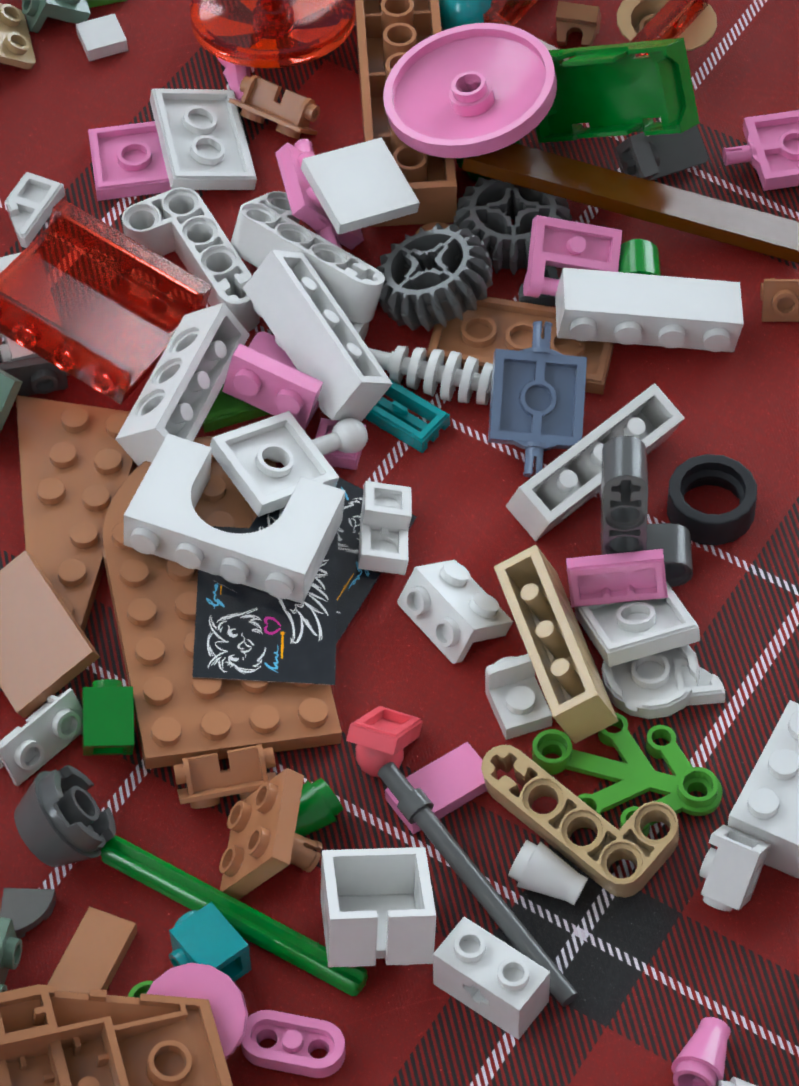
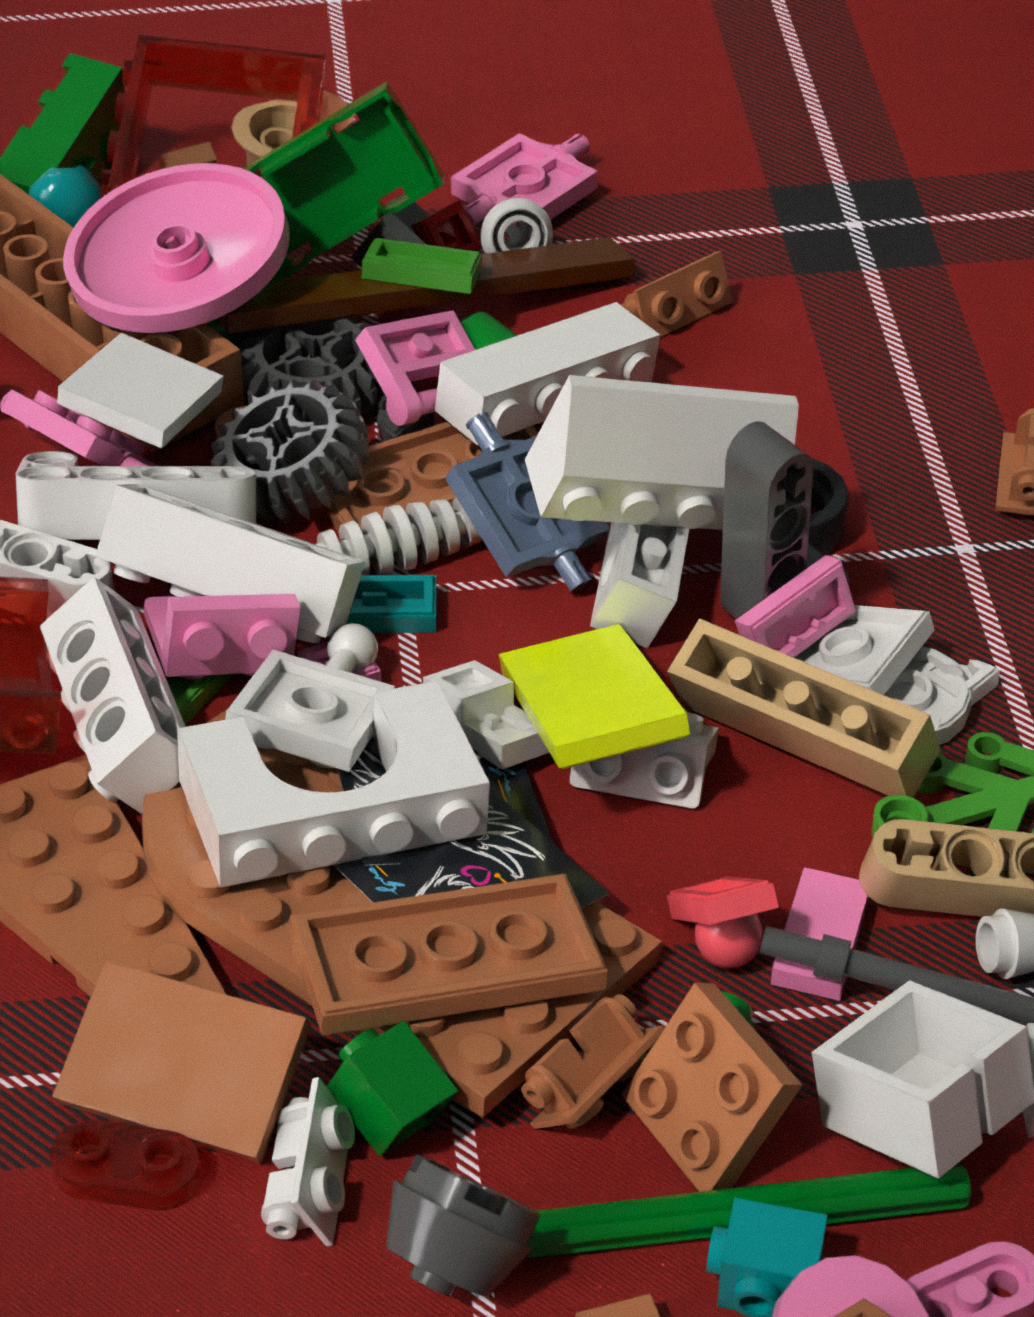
camera: 40 degrees left, 10 degrees down
(198, 662) = (446, 953): none -> nougat tile
(437, 554) = (593, 696): none -> neon yellow tile
(516, 696) = (802, 798): white bracket -> none
(583, 406) = (644, 450): none -> white slope
(634, 184) = (422, 265): none -> bright green tile
(697, 164) = (448, 228): none -> red tile
(741, 184) = (532, 231): none -> white cone

